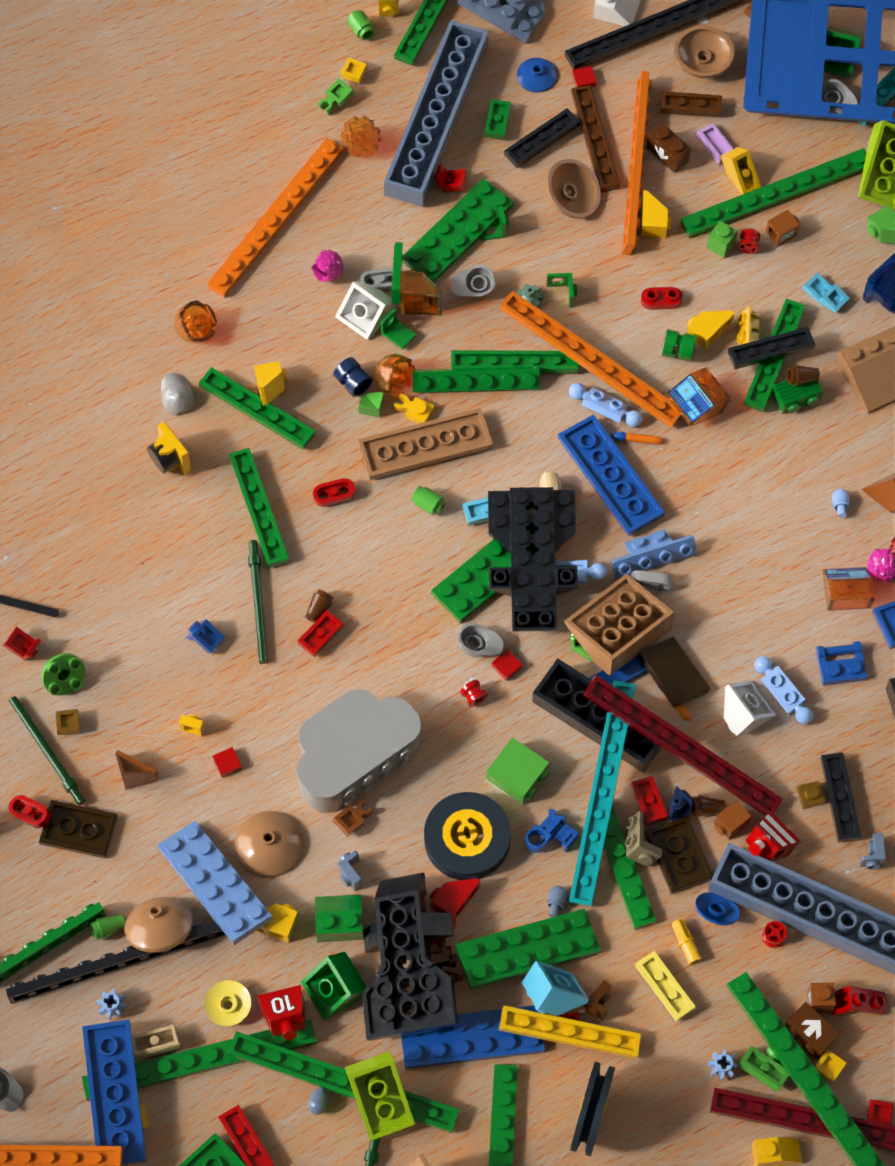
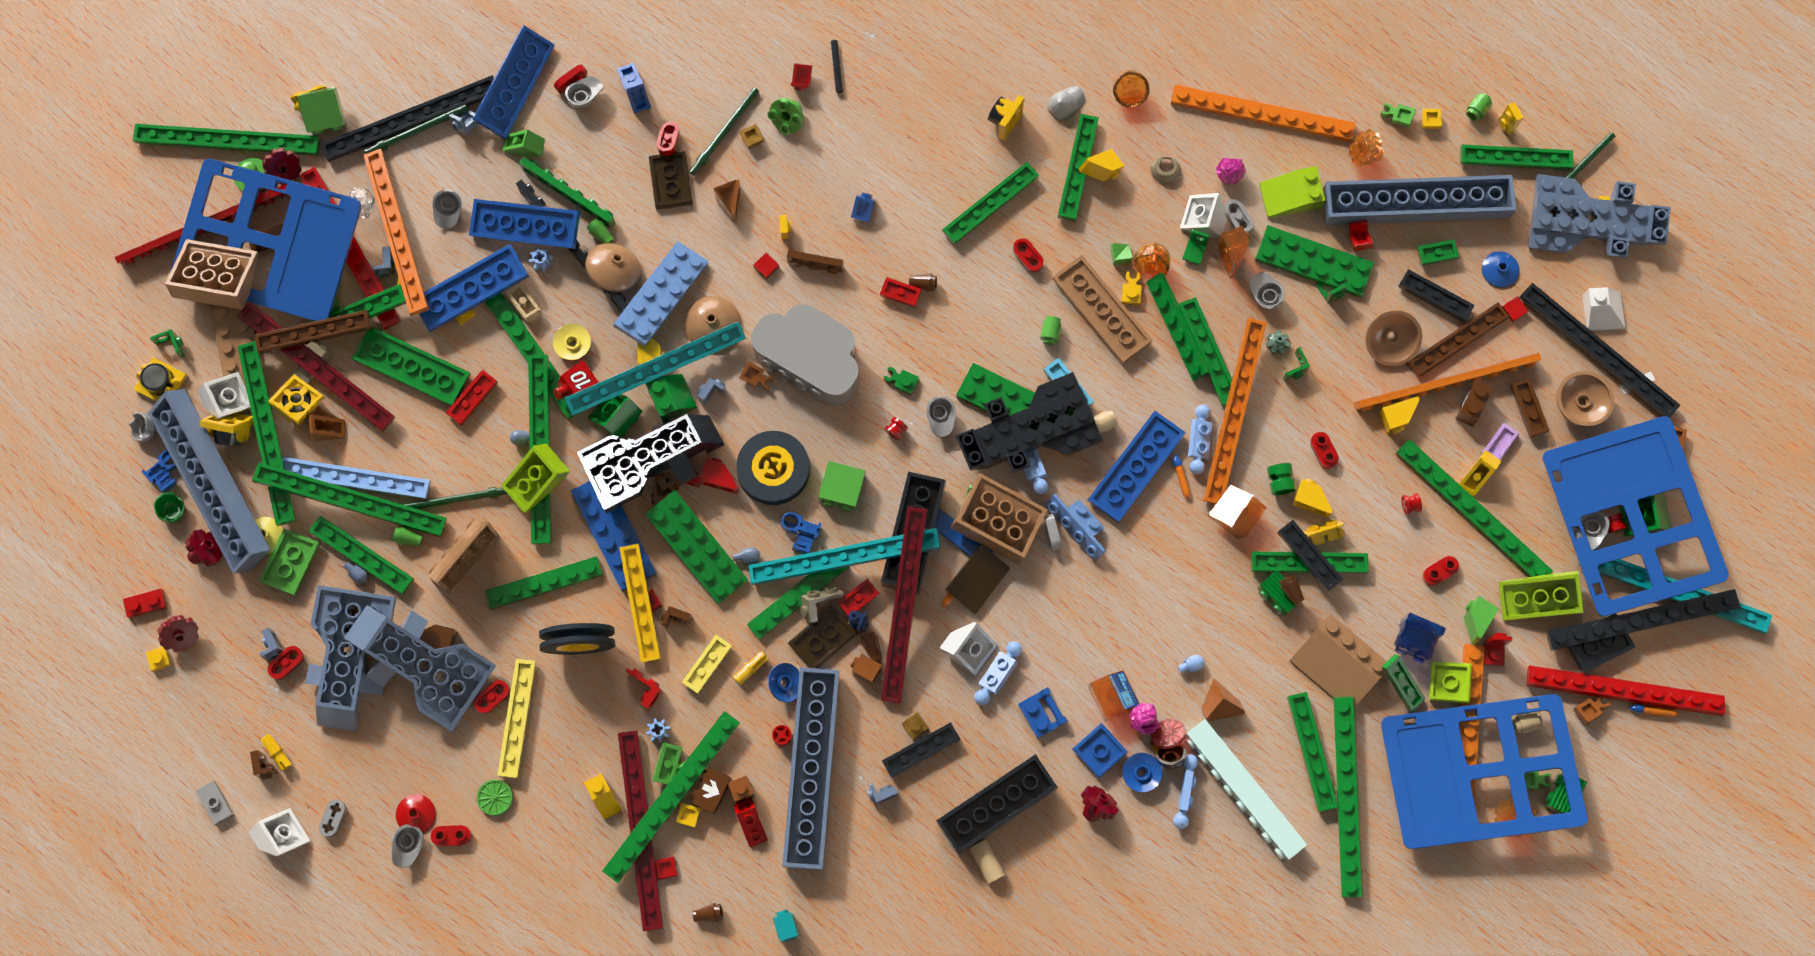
camera: 70 degrees right, 10 degrees up
(62, 1004) = (524, 223): none -> blue plate
(247, 707) = (815, 262): none -> reddish brown plate
(254, 563) = (941, 220): dark green bar -> none
(296, 336) = (1165, 177): none -> dark tan piece
(304, 918) = (655, 368): none -> teal plate
(353, 376) = (1137, 229): dark blue wheel -> none
(377, 220) = (1293, 192): none -> lime slope
(397, 268) = (1248, 224): green tile -> none
(421, 667) = (904, 381): none -> green plate
(506, 665) = (932, 445): red tile -> none
(553, 989) = (668, 578): medium azure slope -> none
(681, 1062) = (649, 697): none -> red bracket
(722, 239) = (1402, 479): bright green brick -> none
(771, 839) = (858, 704): red torso -> none
(783, 227) = (1438, 528): dark orange brick -> none
(826, 242) = (1441, 571): none -> red plate
(827, 295) = (1390, 586): medium azure slope -> none
(838, 75) = (1616, 524): none -> red wheel

